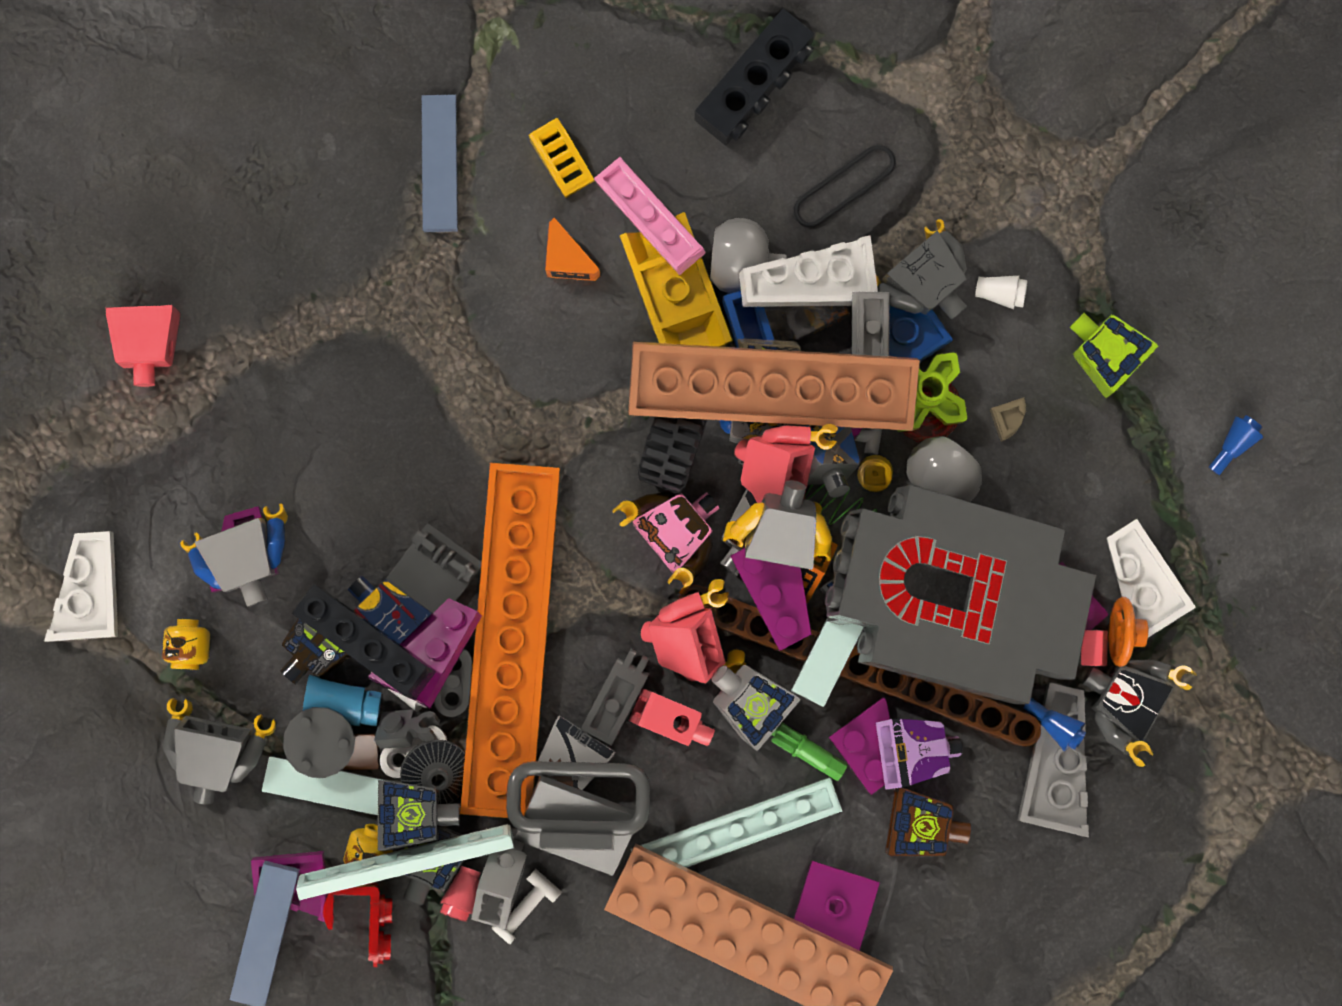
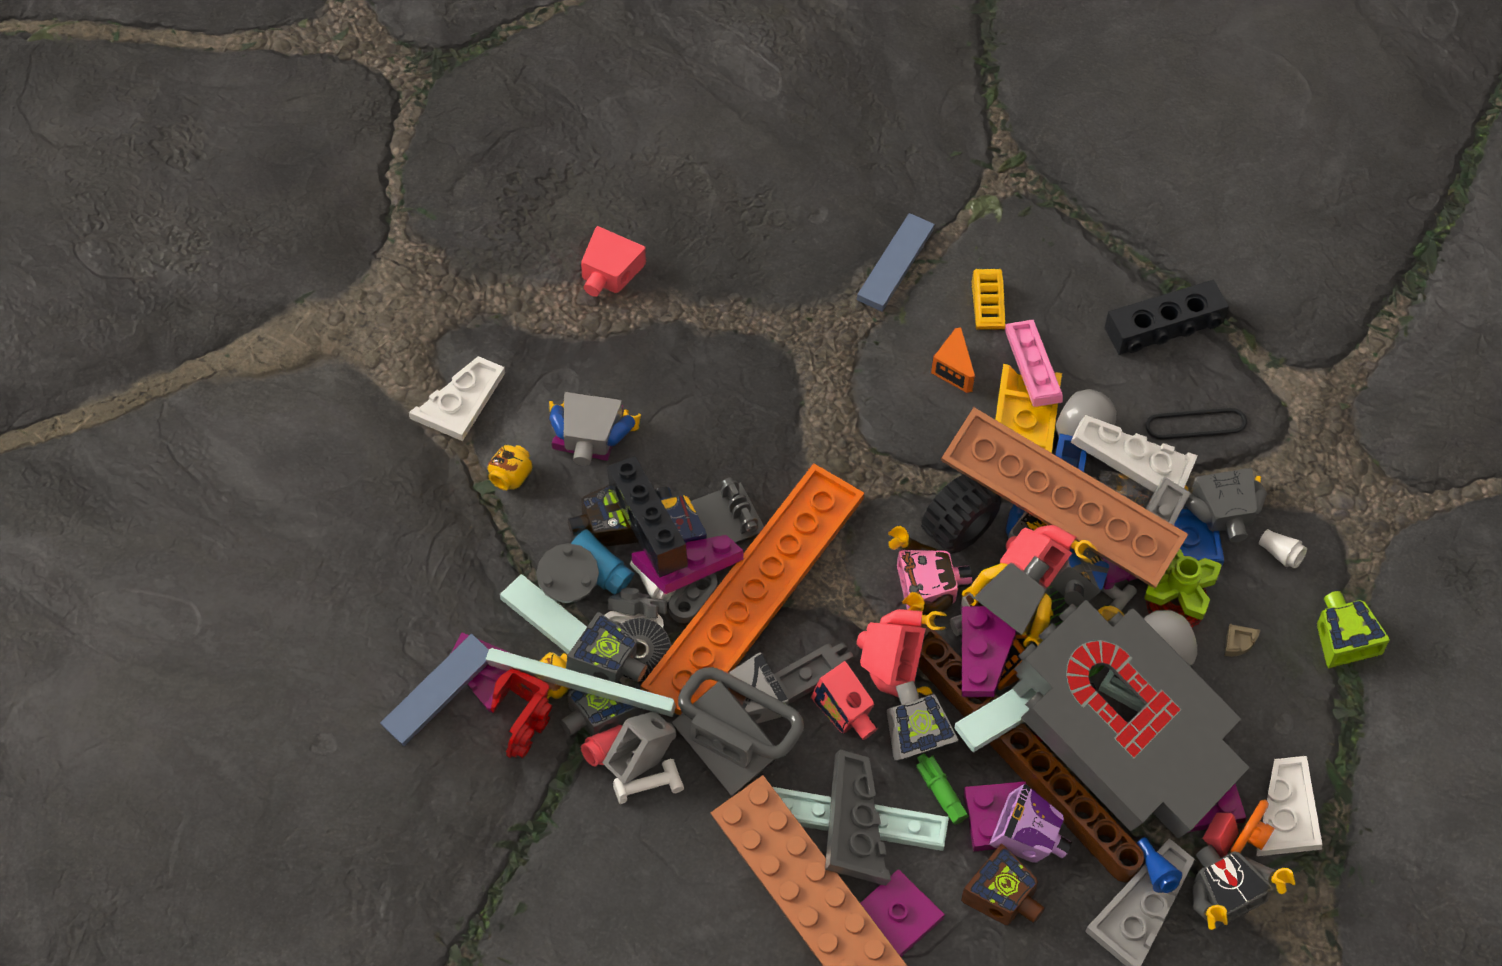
camera: 30 degrees right, 25 degrees down
(210, 752) = (482, 545): torso -> none
(365, 753) = (588, 607): slope -> none
(753, 854) = (853, 829): none -> dark grey wing
(1241, 437) = (1426, 745): blue cone -> none

